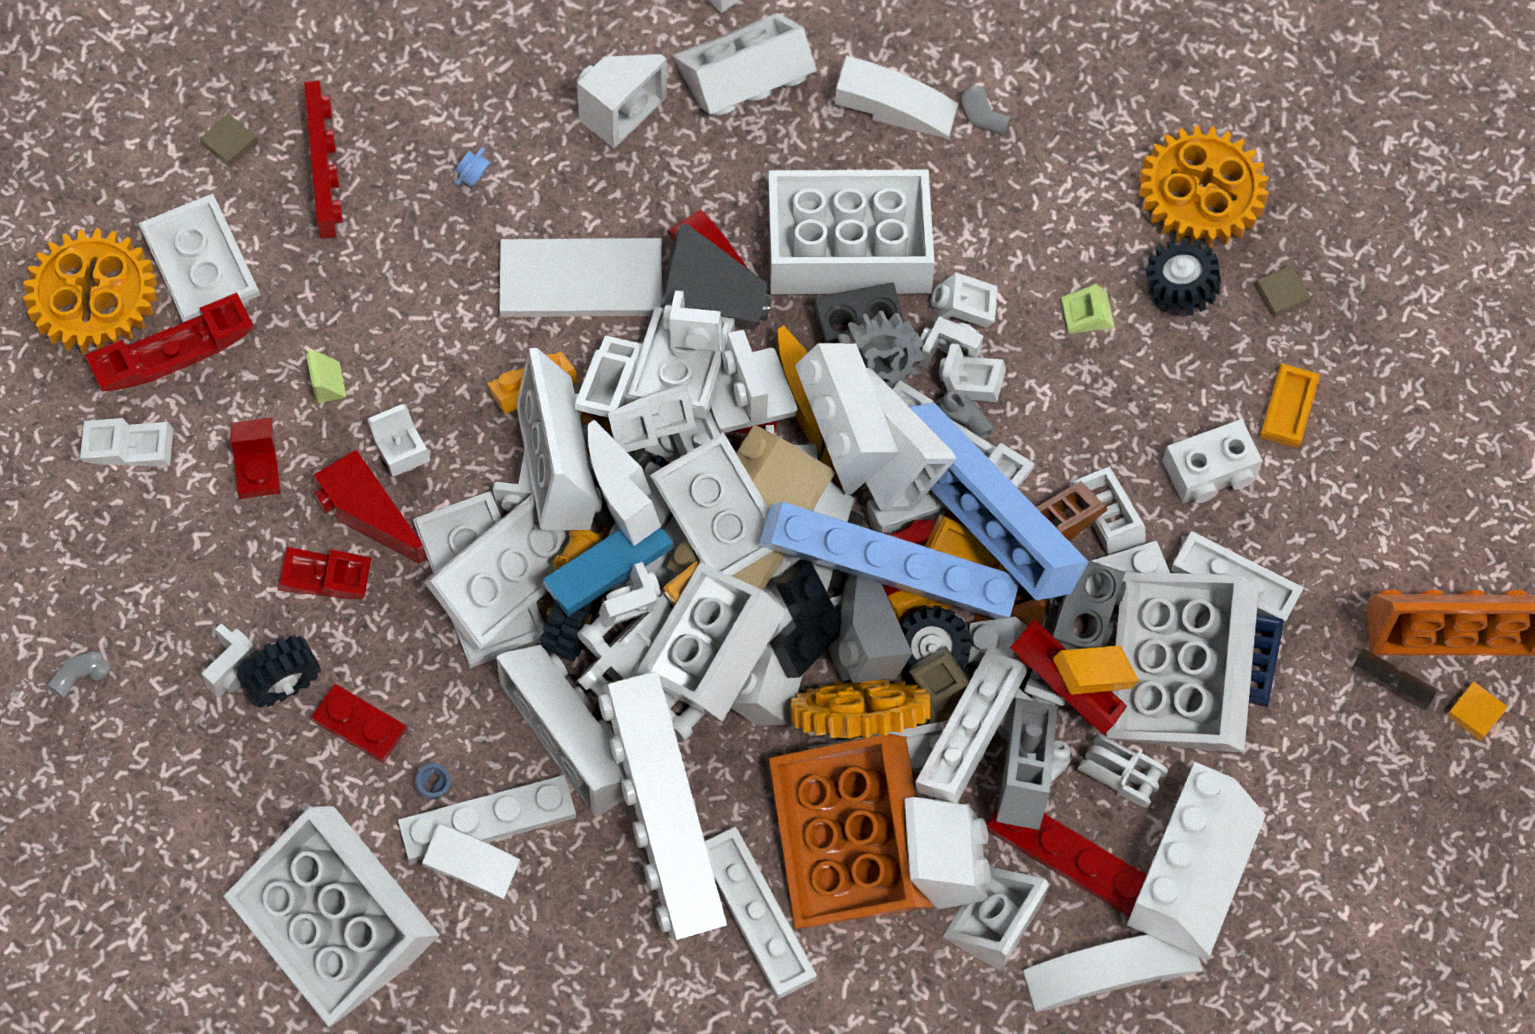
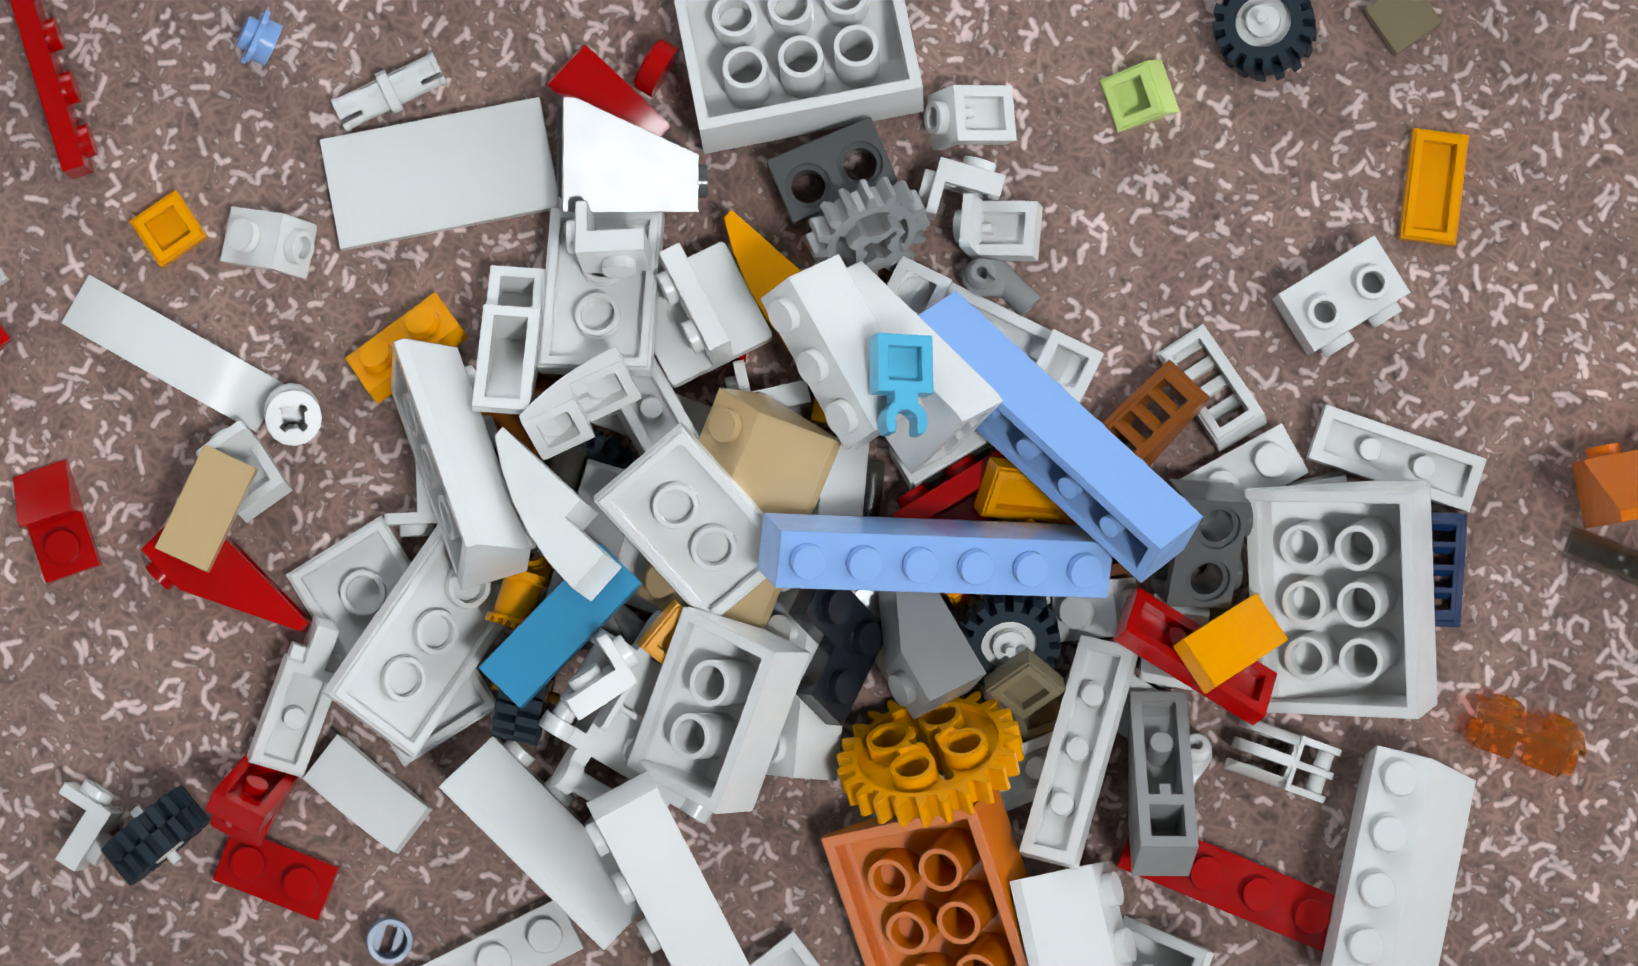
camera: 10 degrees left, 20 degrees up
(325, 377) = (124, 391): yellowish green slope -> none
(328, 575) = (186, 673): red slope -> none
(351, 664) = (249, 801): none -> red slope
(366, 358) = (170, 352): none -> white slope
(368, 452) = (206, 508): none -> tan tile
(381, 280) = (169, 229): none -> light orange tile
(401, 604) = (296, 702): none -> white hinge
(436, 416) = (291, 399): none -> white wheel
(439, 676) = (367, 794): none -> white slope
(451, 297) = (269, 241): none -> white bracket
(556, 218) = (389, 91): none -> white pin
(747, 232) = (656, 67): none -> red tile
(889, 419) = (902, 372): none -> medium azure plate
(1322, 793) = (1550, 741): none -> clear orange hinge

